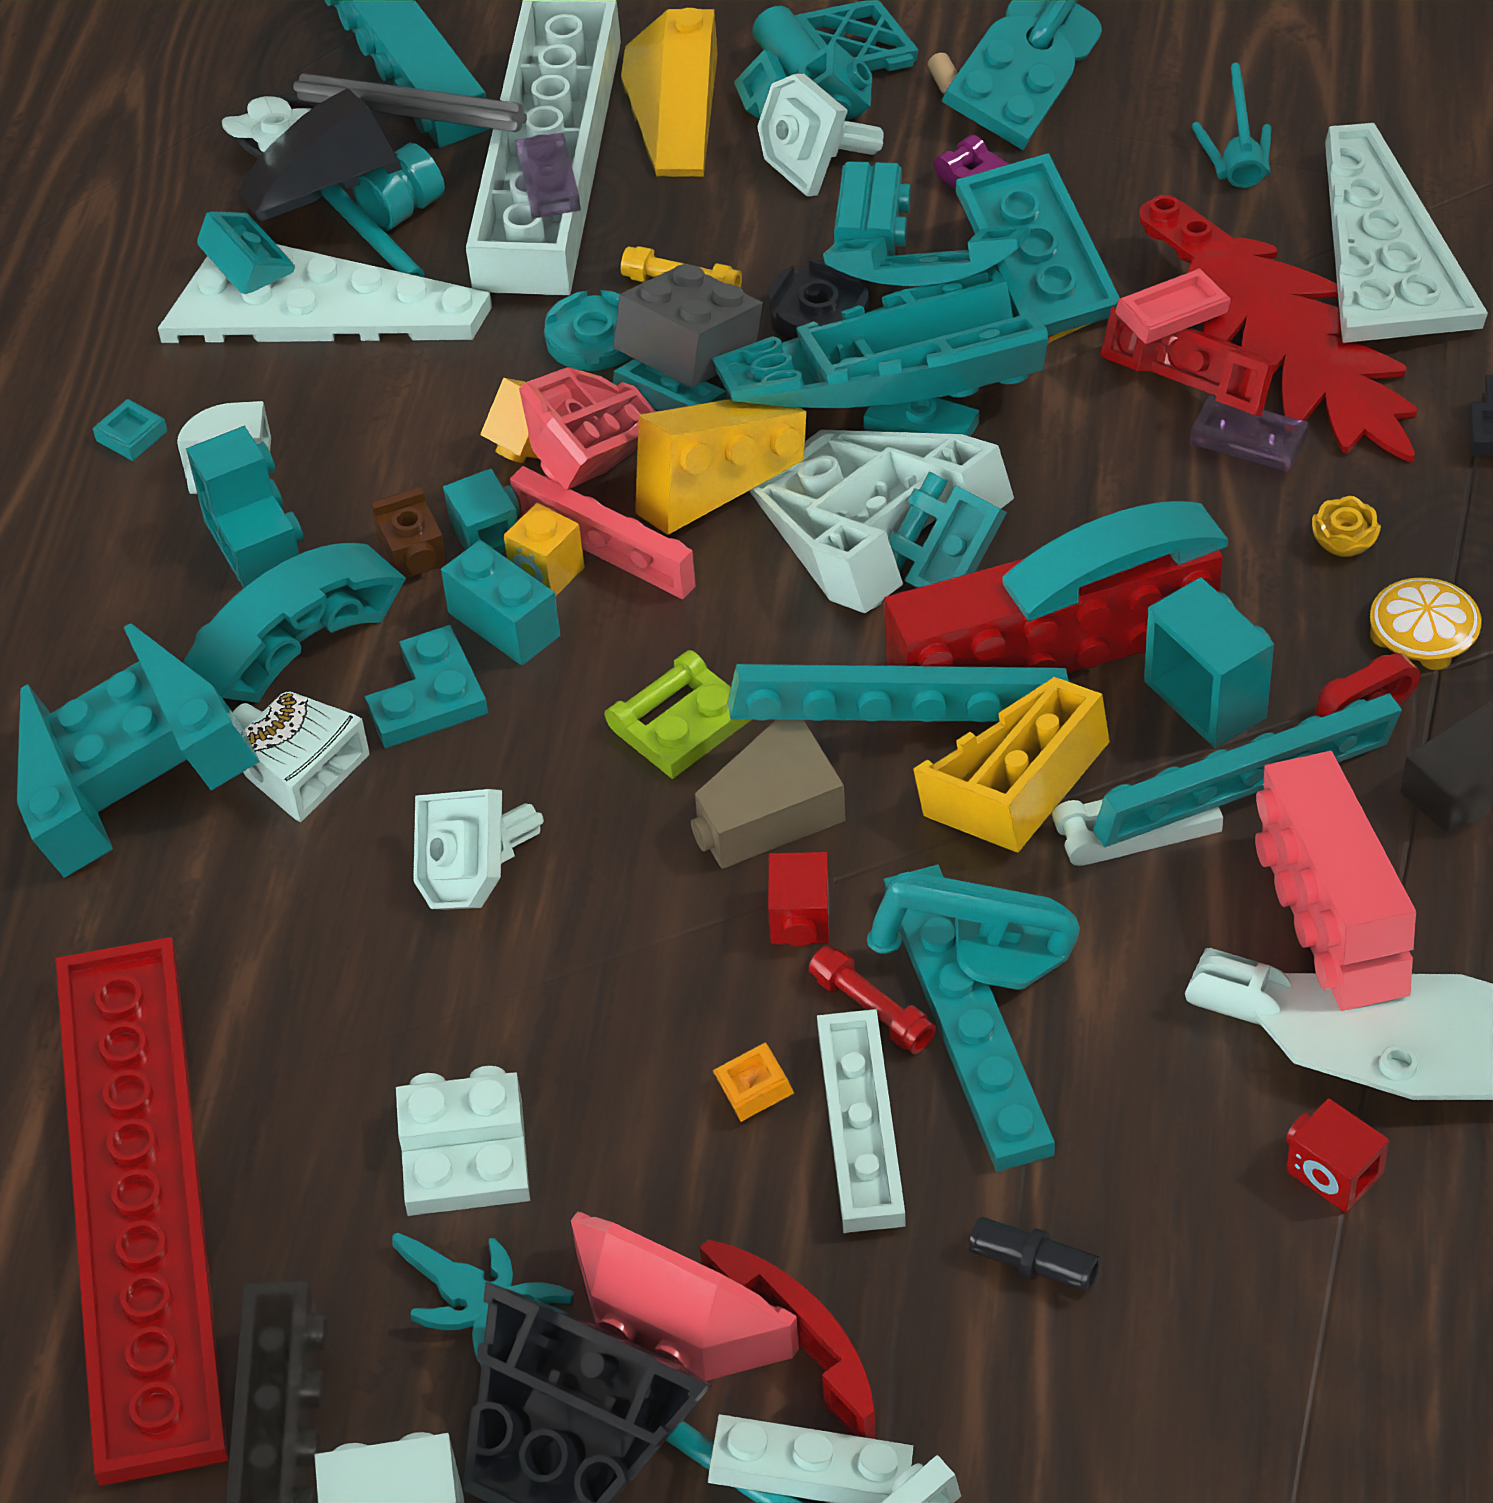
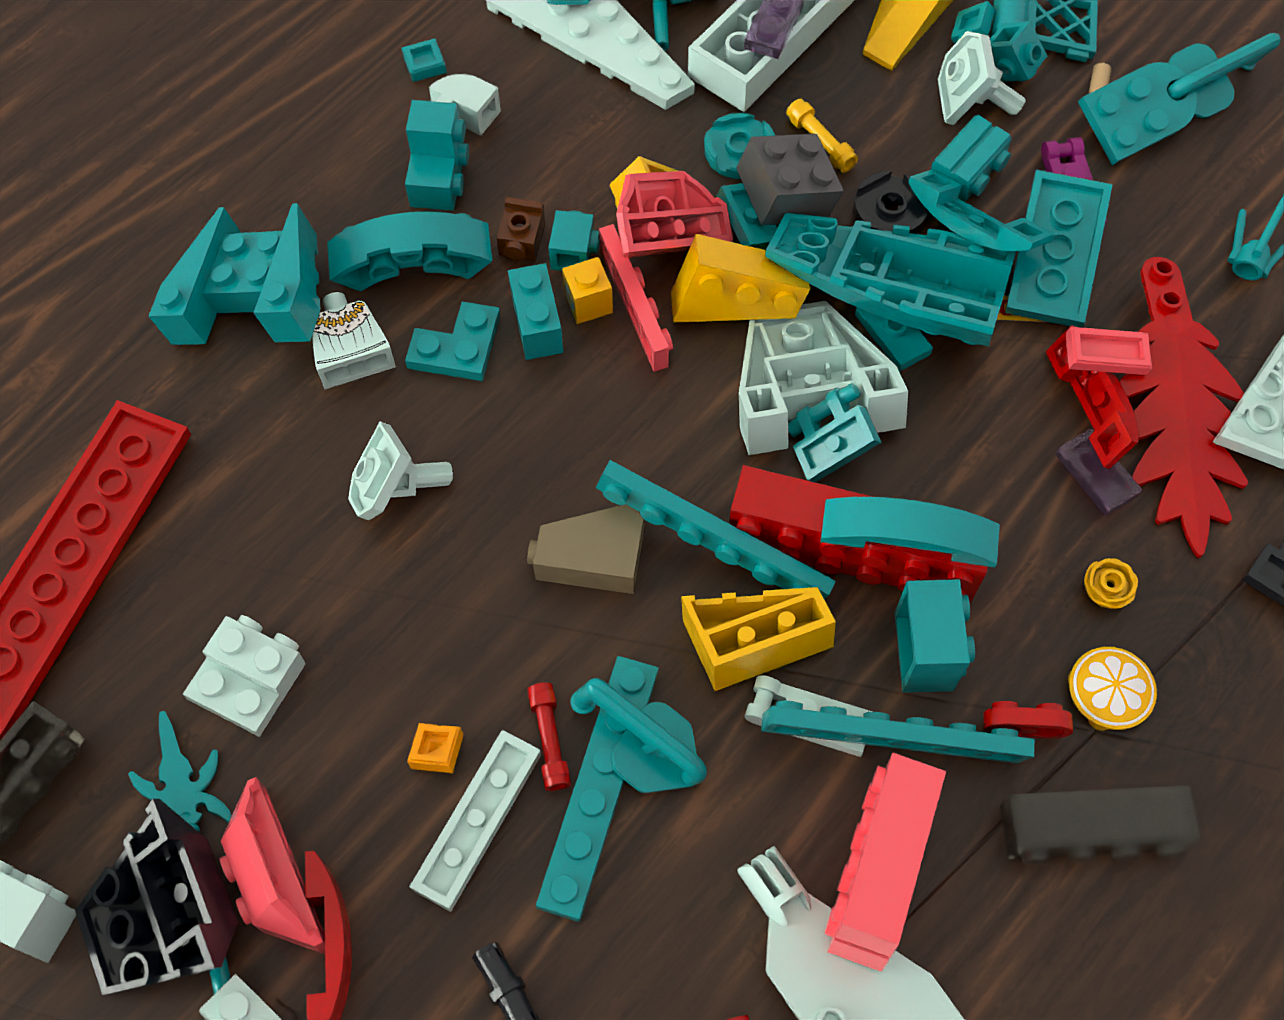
camera: 30 degrees right, 15 degrees up
(685, 729) = (582, 468): lime plate -> none
(798, 898) = (554, 637): red brick -> none

